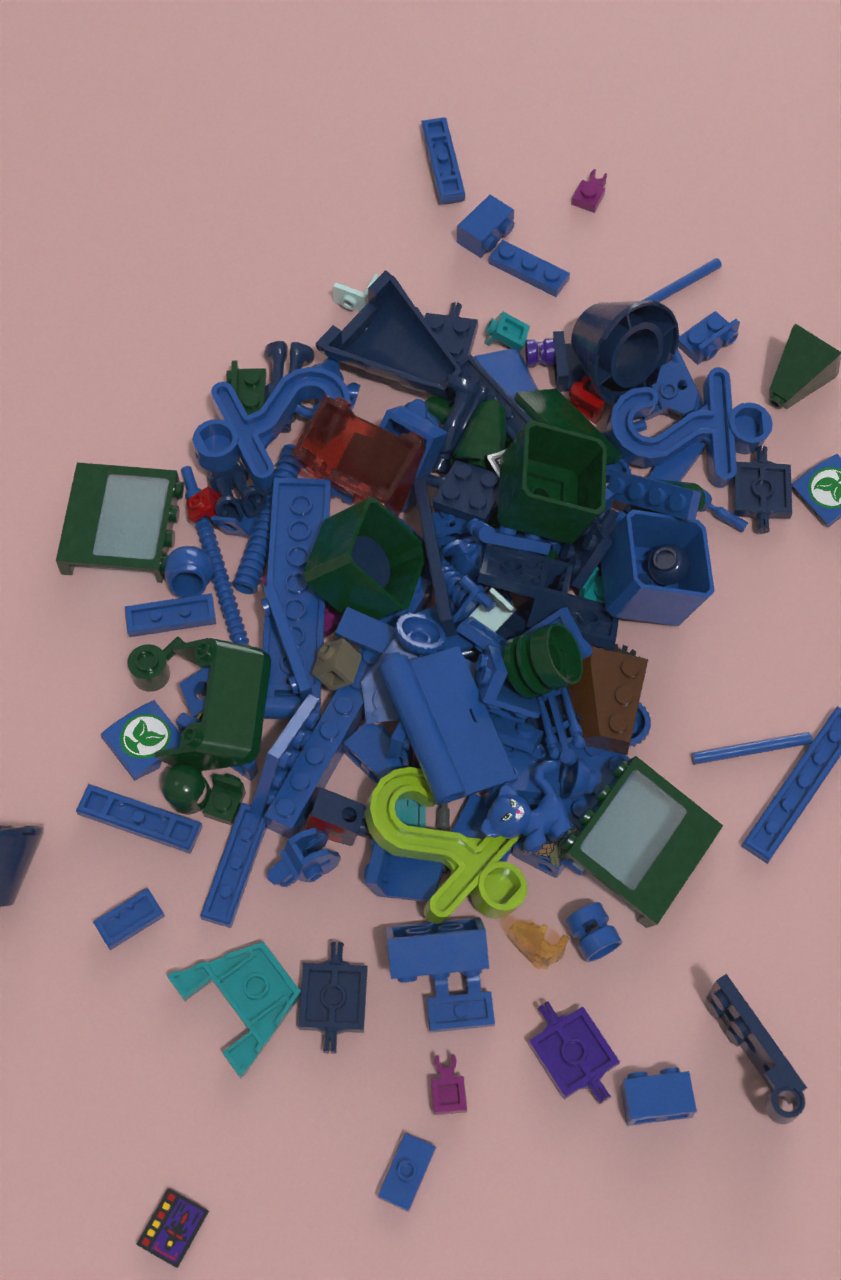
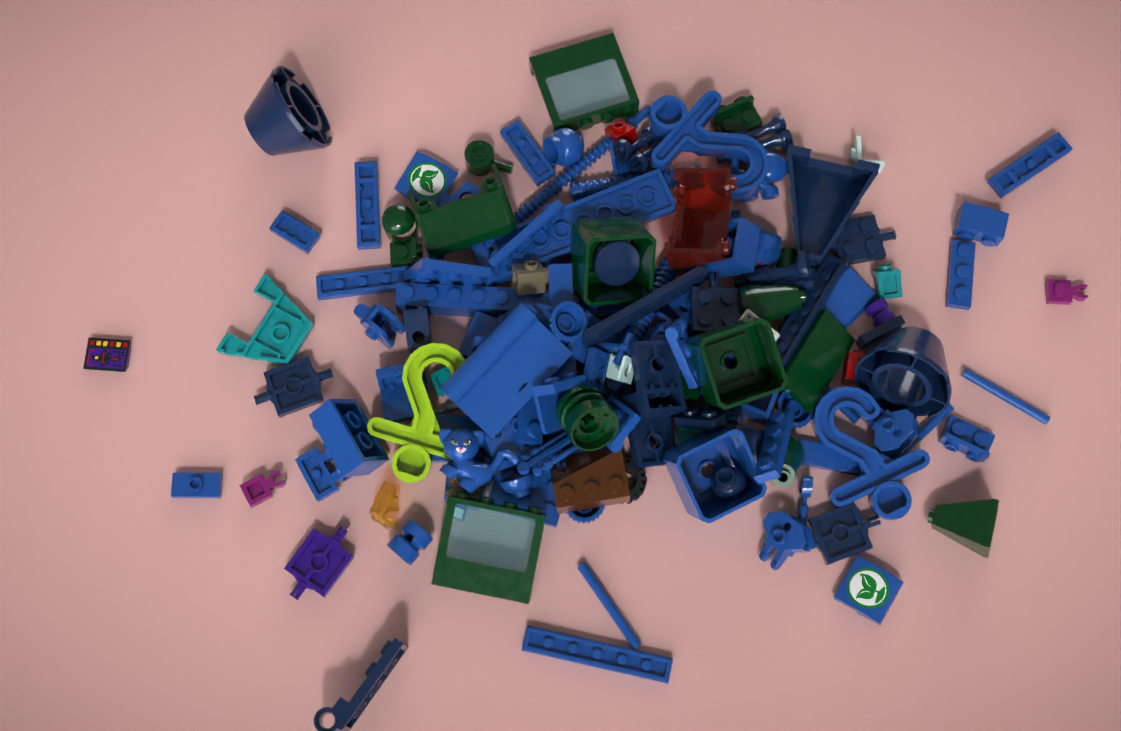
camera: 65 degrees right, 10 degrees up
(658, 1097) = (308, 632): blue brick -> none
(750, 541) = (787, 536): none -> blue hinge

